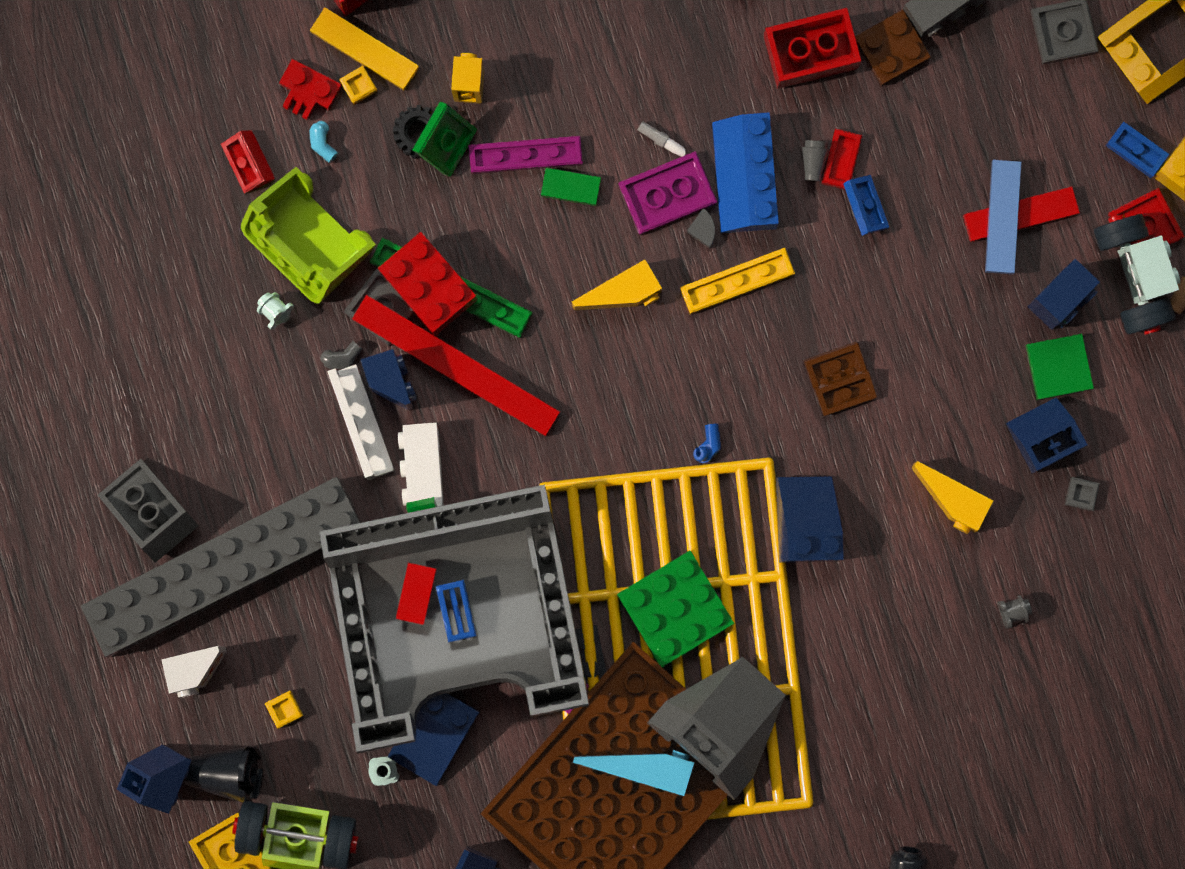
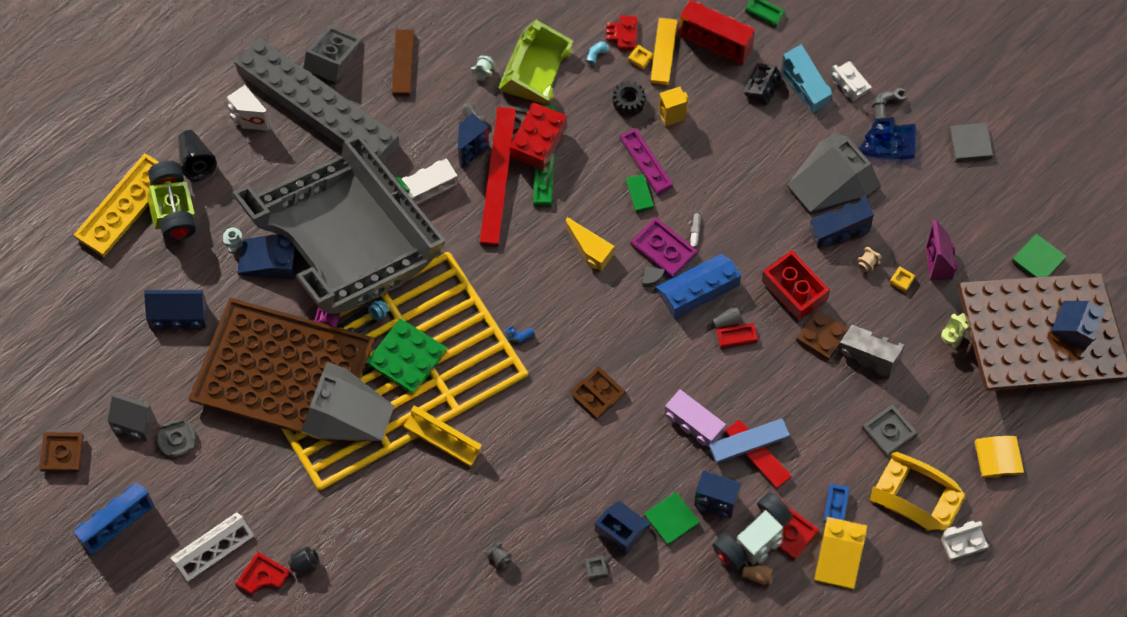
camera: 65 degrees right, 20 degrees down
(155, 778) = (172, 116): dark blue slope -> none
(208, 417) = (403, 62): none -> reddish brown tile
(247, 161) = (566, 19): red slope -> none
(284, 709) = (247, 173): yellow tile -> none
(361, 422) = (435, 140): white fence -> none
(416, 593) = (347, 205): red tile -> none
(445, 139) = (630, 110): green tile -> none
(461, 635) = (356, 229): blue tile -> none
(592, 617) = (378, 310): none -> dark azure plate
(656, 770) = (299, 380): medium azure slope -> none
(737, 281) = (630, 309): yellow tile -> none
(808, 520) = (498, 408): dark blue slope -> none
(816, 612) = (443, 436): none -> yellow fence
(866, 205) = (714, 359): blue plate -> none
(939, 272) = (694, 418): none -> lavender brick
(957, 501) = (553, 490): yellow slope -> none

